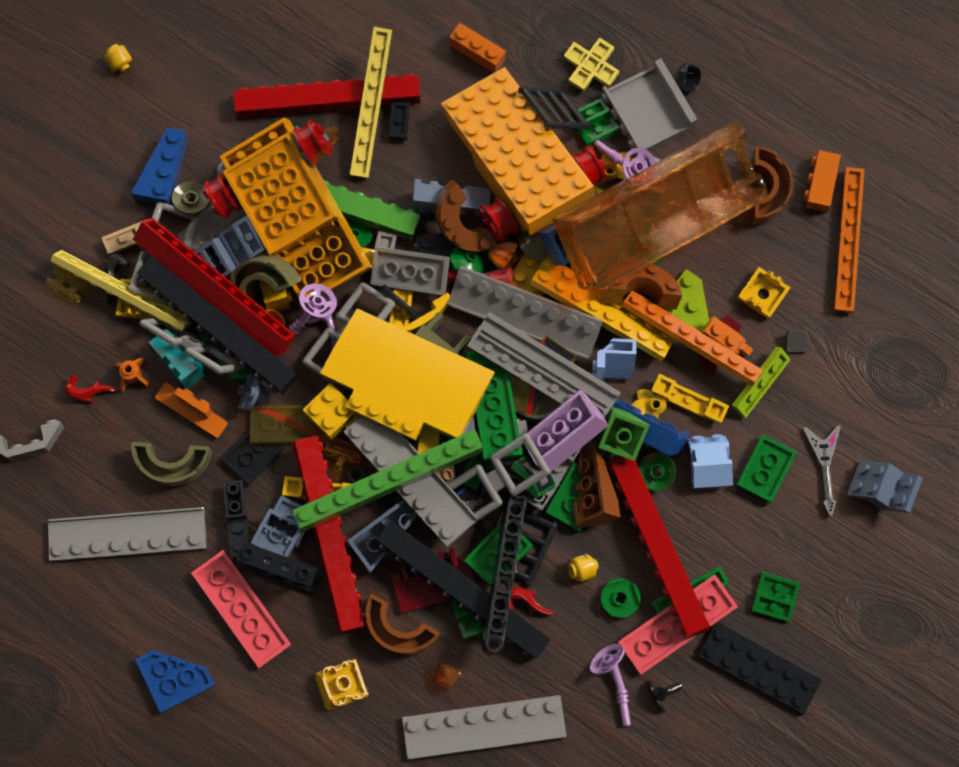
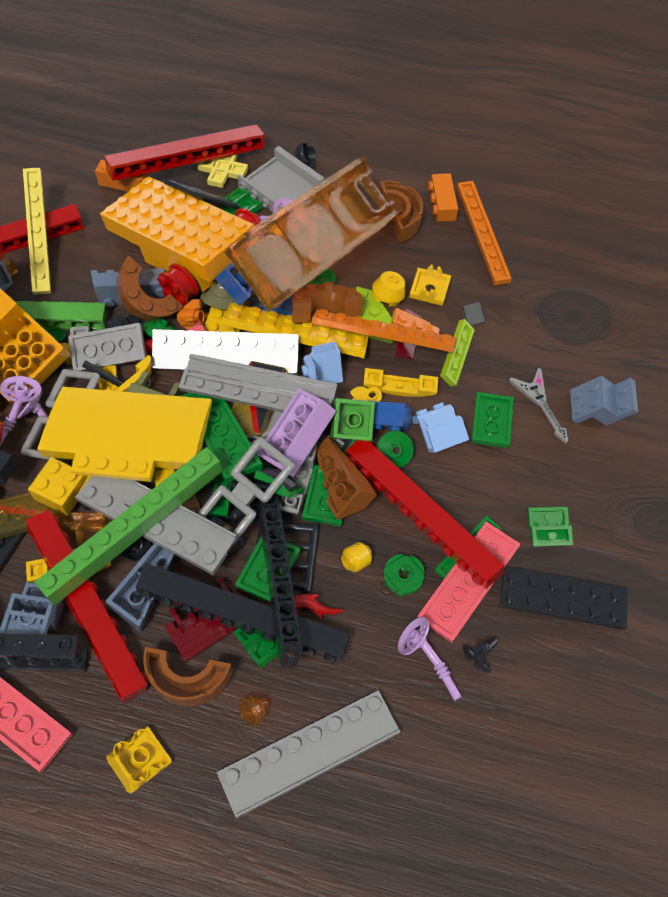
camera: 20 degrees left, 15 degrees down
(399, 120) = (68, 243): black plate -> none
(554, 42) = (183, 152): none -> red brick
(717, 285) = (389, 288): none -> yellow cone

